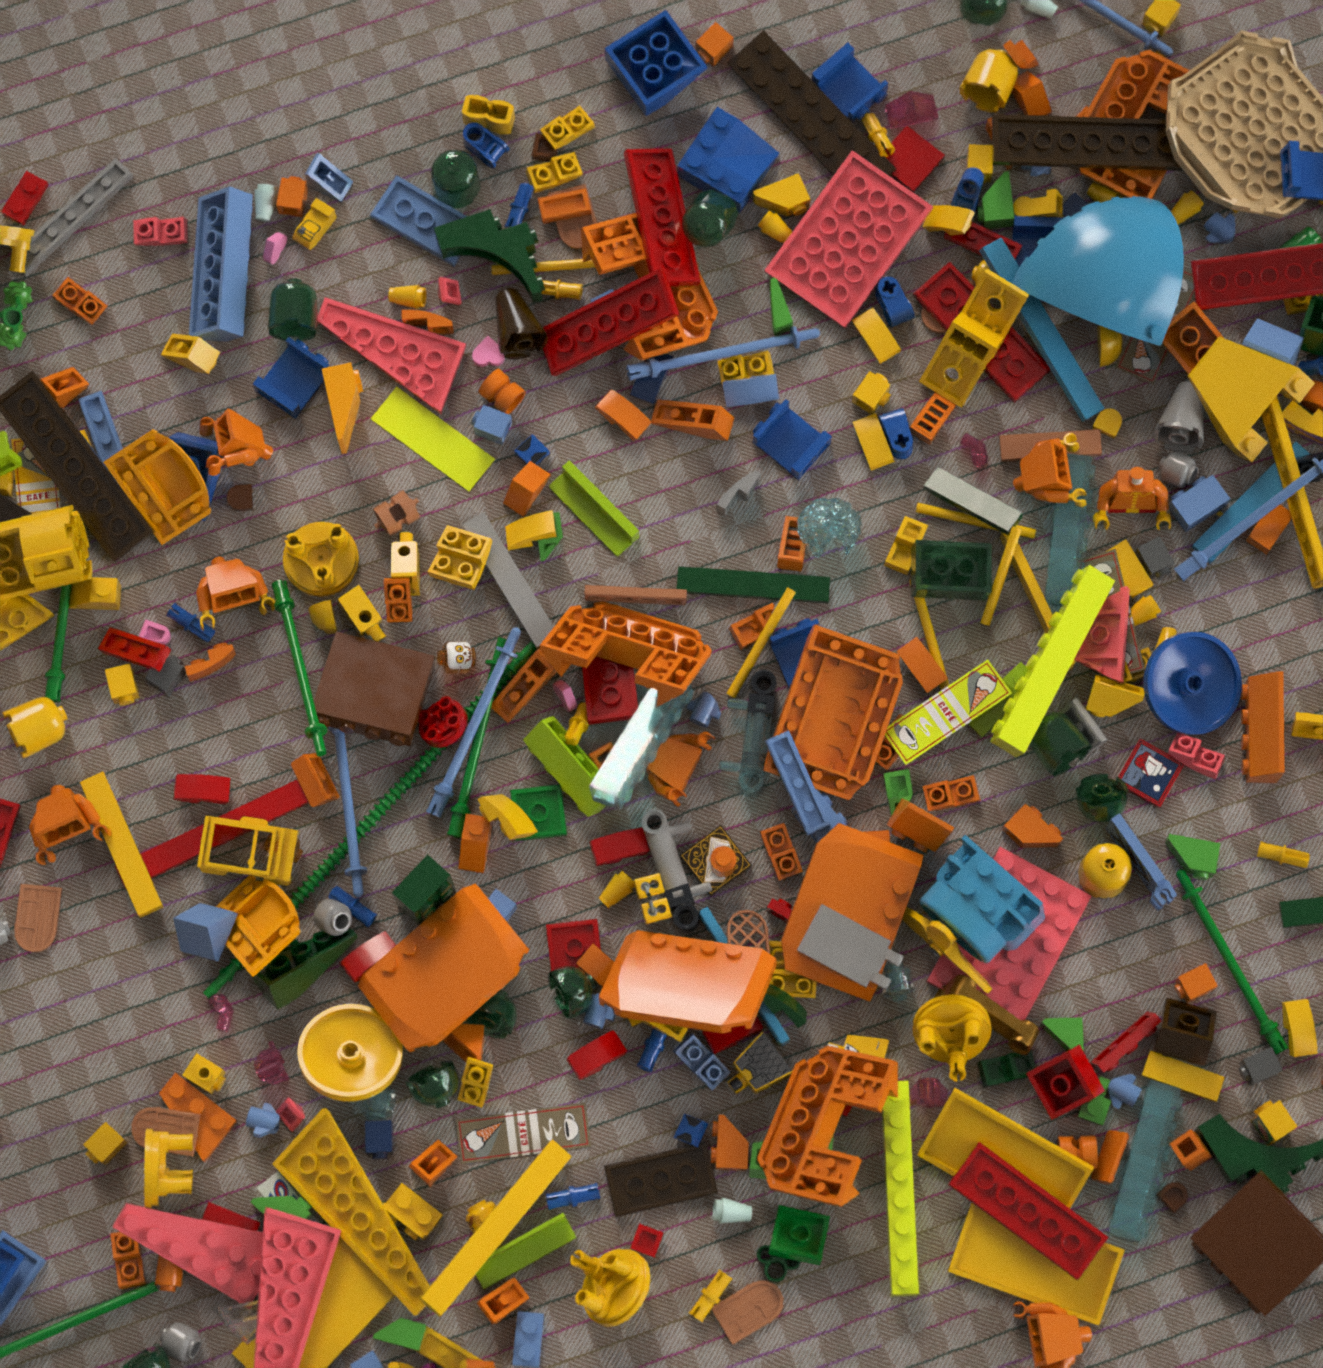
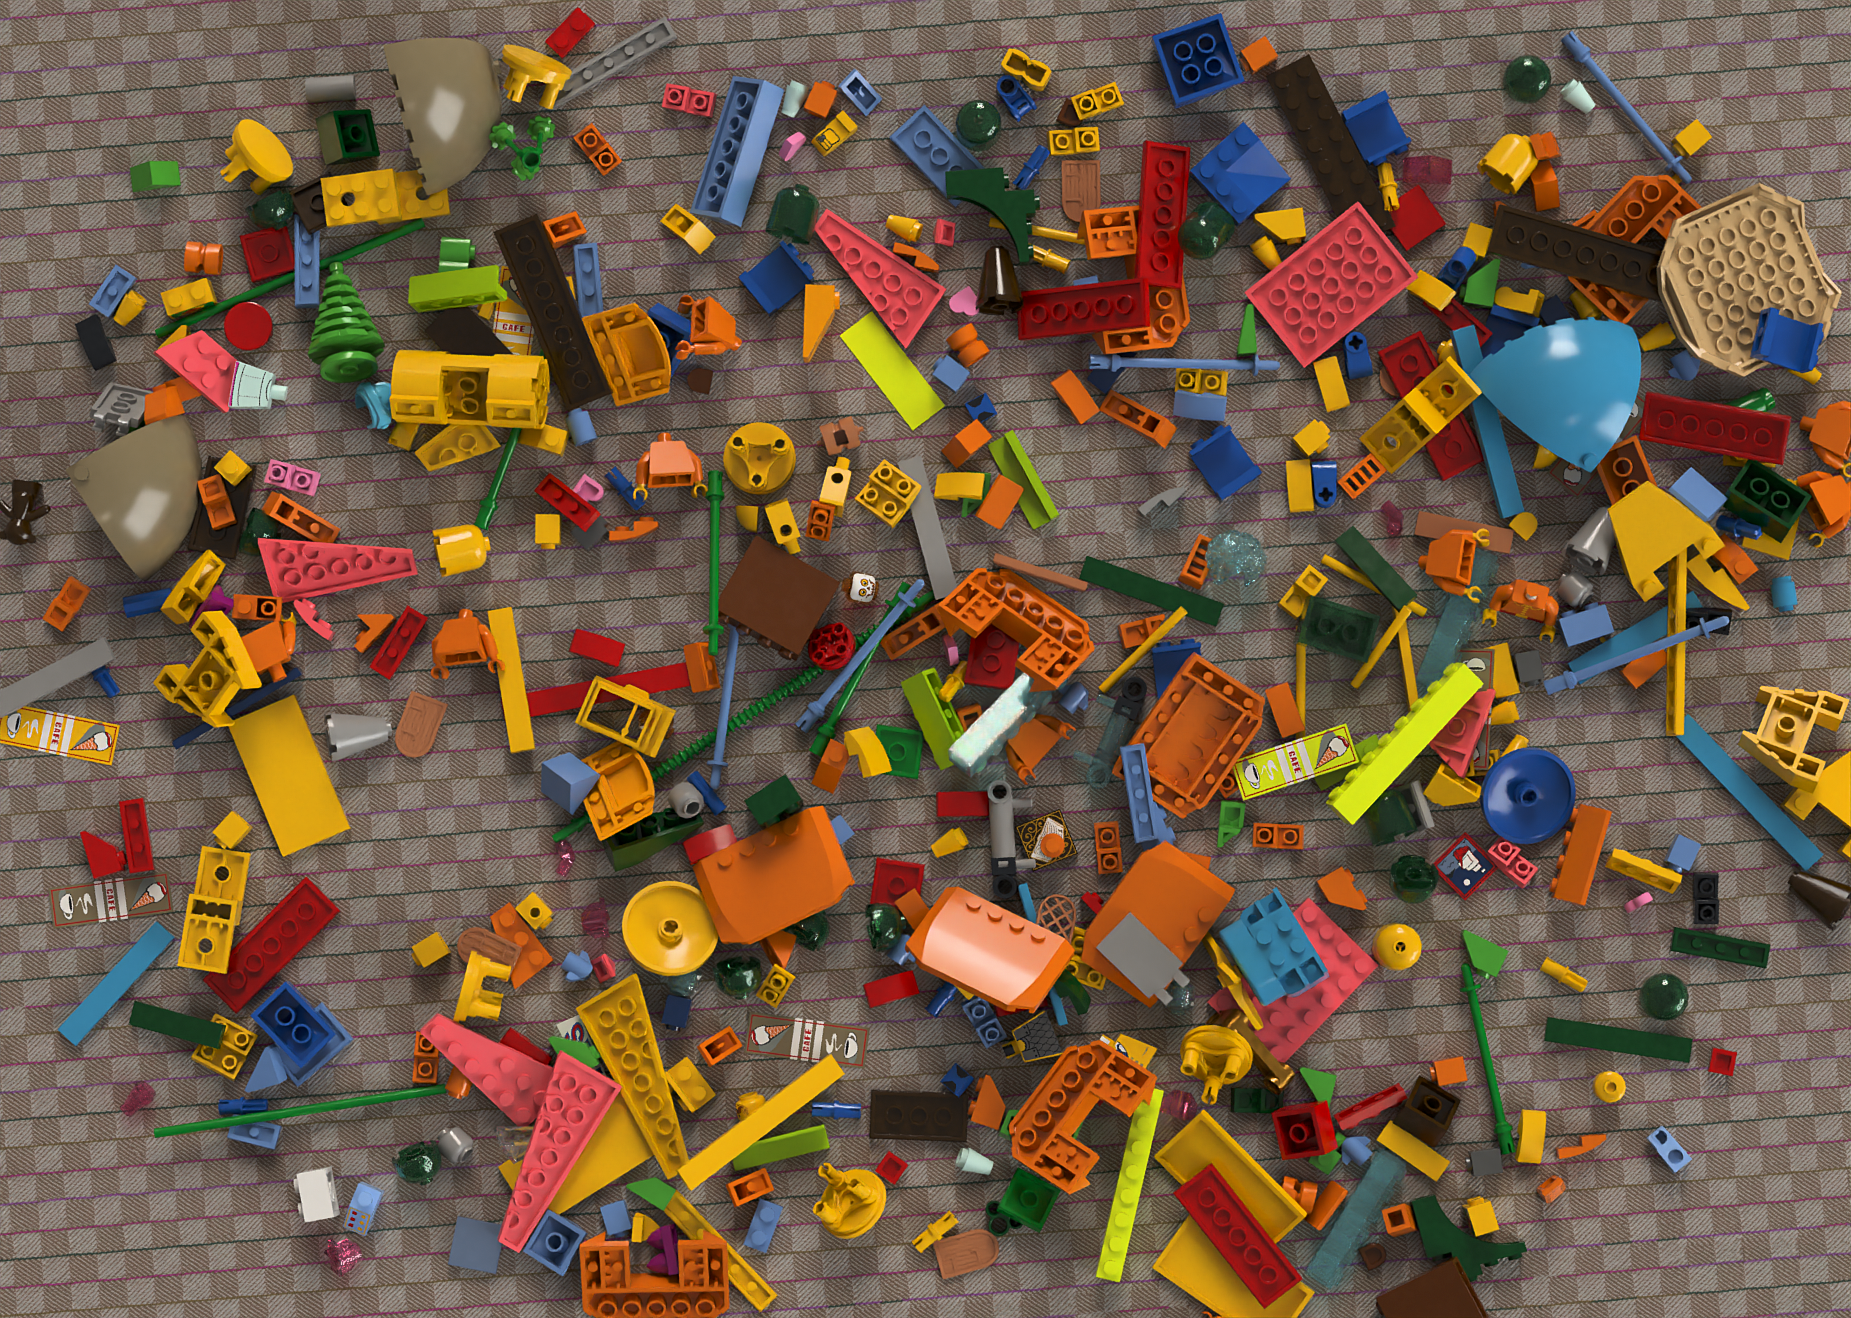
camera: 20 degrees right, 10 degrees up
(130, 574) = (580, 427): none -> medium blue brick
(564, 206) = (1074, 177): orange tile -> none
(575, 535) = (999, 502): none -> orange slope
(649, 909) = (973, 854): yellow piece -> none
(918, 825) = (1240, 860): orange slope -> none
(1141, 862) = (1432, 949): medium blue tile -> none

